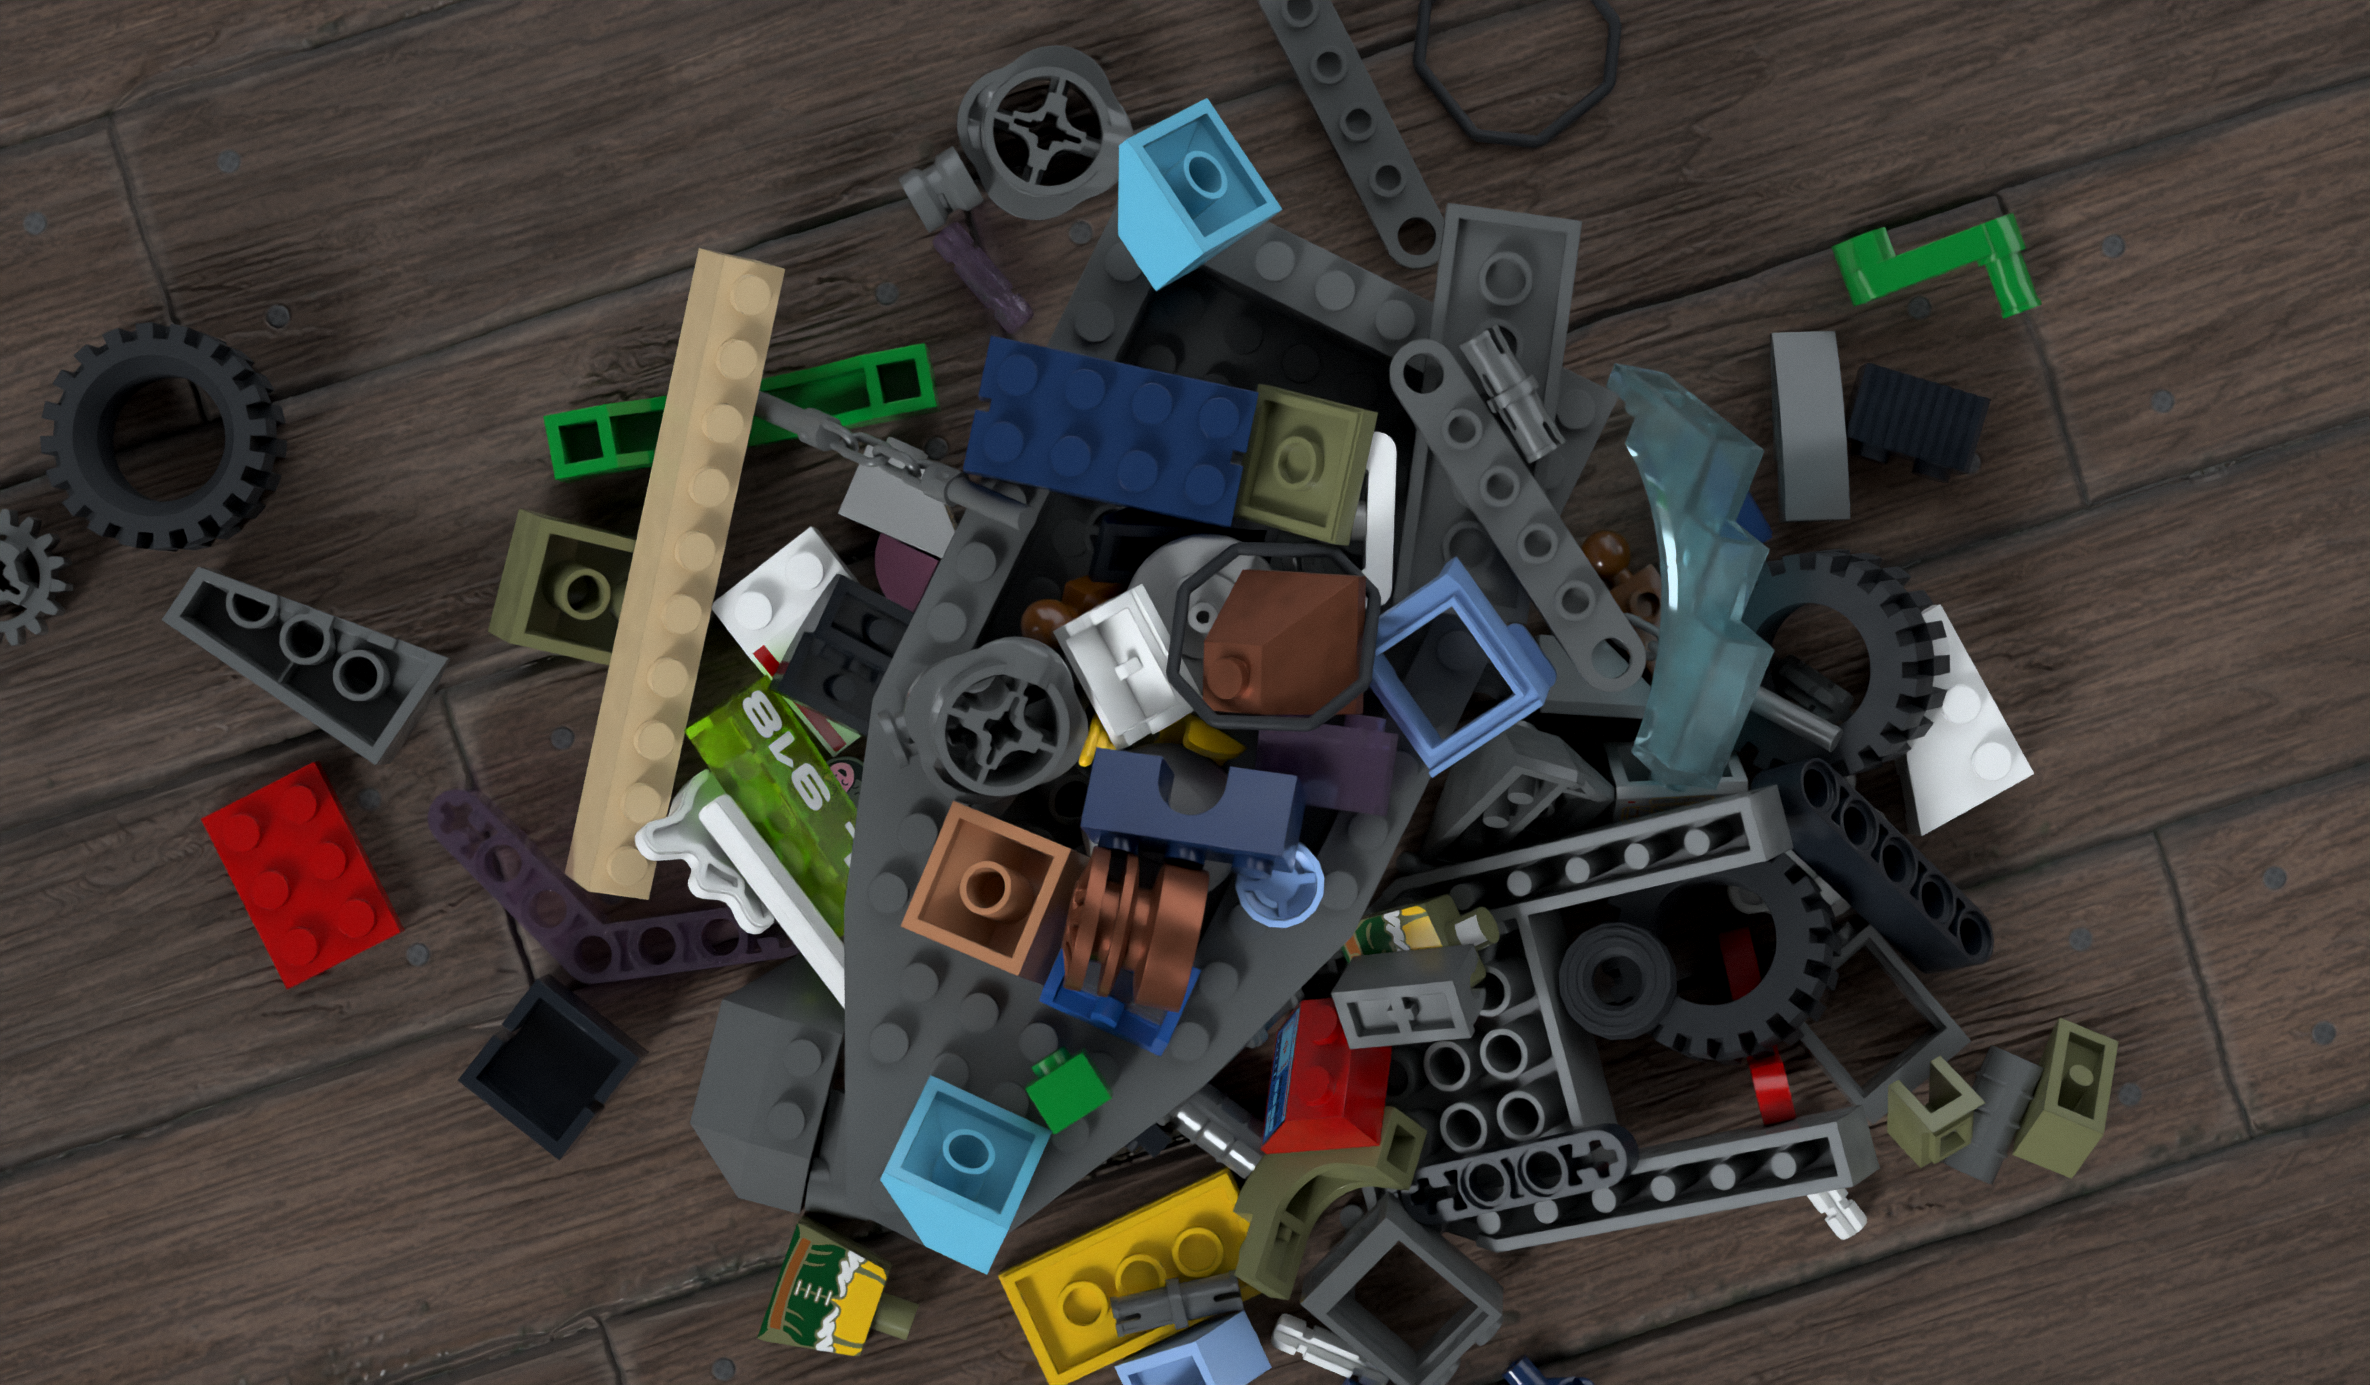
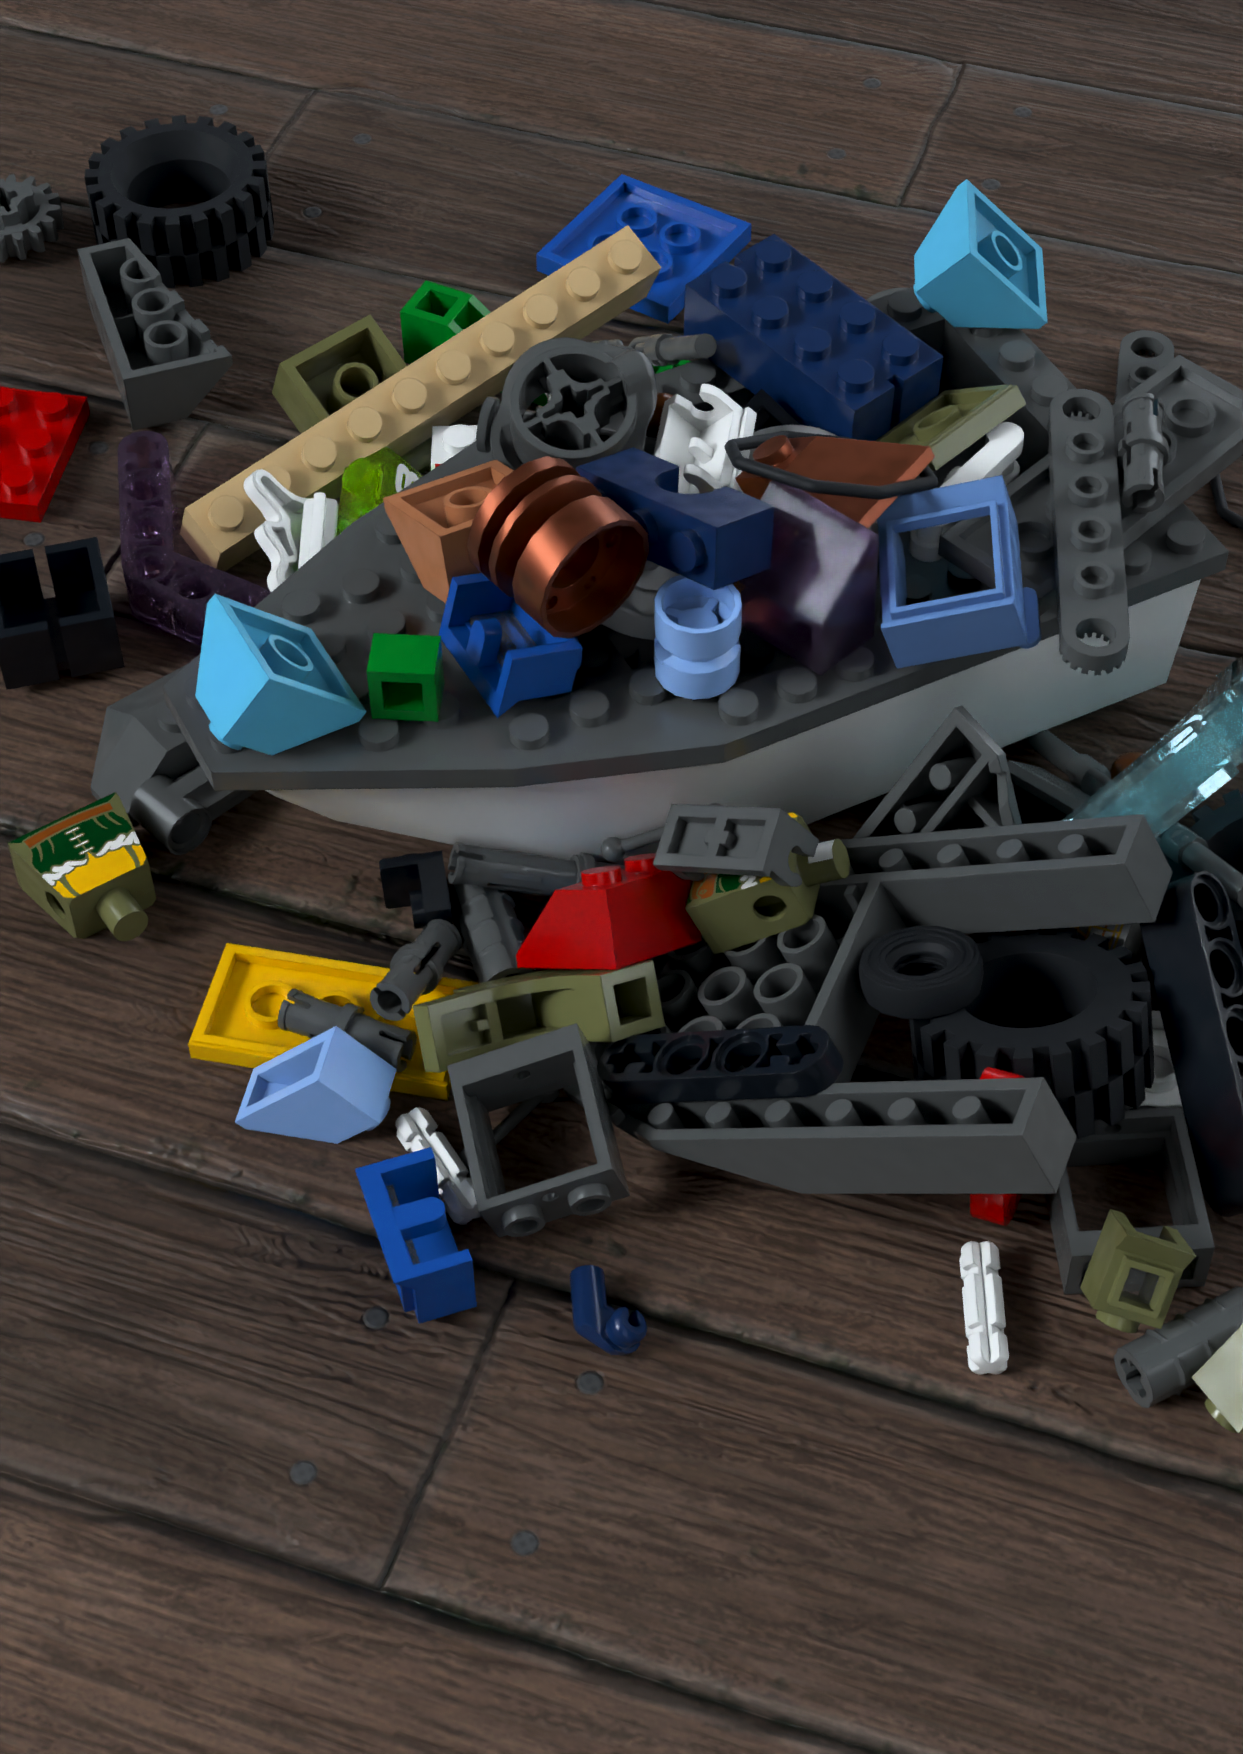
camera: 30 degrees right, 40 degrees down
(674, 150) = (676, 231): none -> blue plate
(1189, 1214) = (401, 985): none -> dark grey pin

